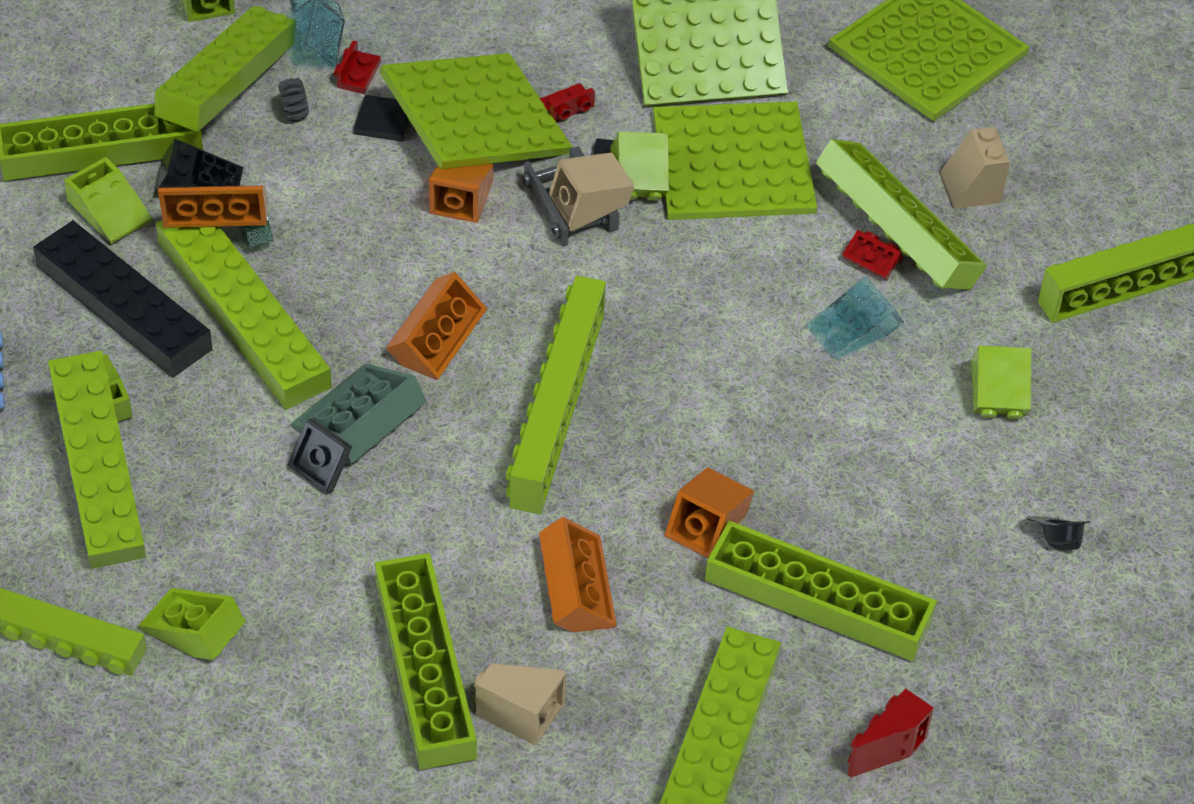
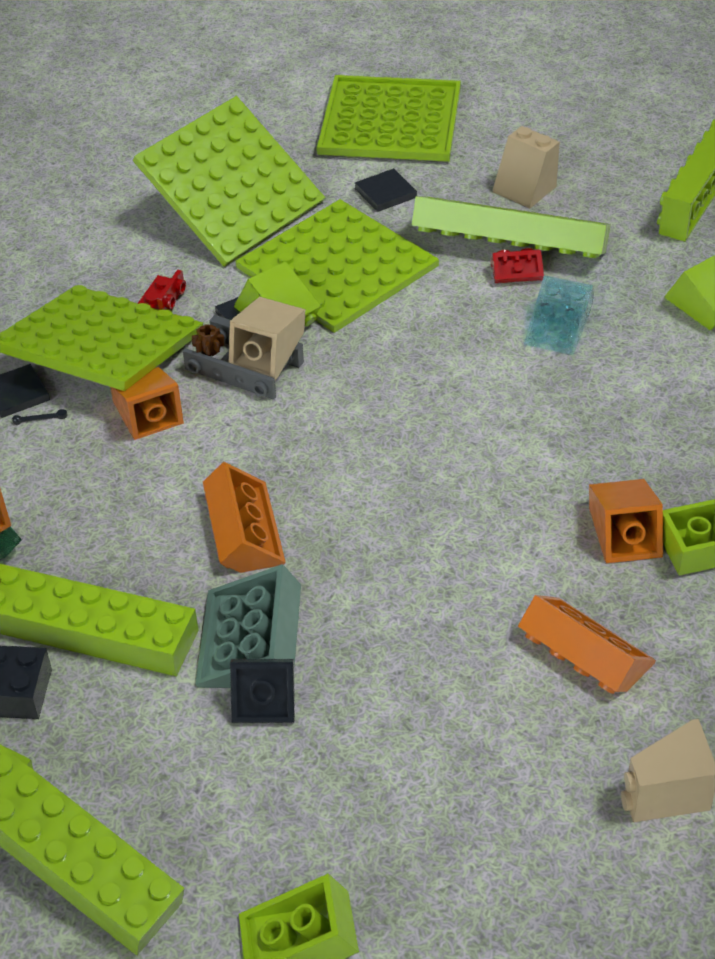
camera: 35 degrees left, 5 degrees down
(398, 158) = (61, 414): none -> black hinge
(425, 661) = (553, 805): lime brick -> none
(546, 164) = (208, 340): none -> reddish brown gear
(556, 395) = (413, 509): lime brick -> none
(847, 115) = (385, 190): none -> black tile

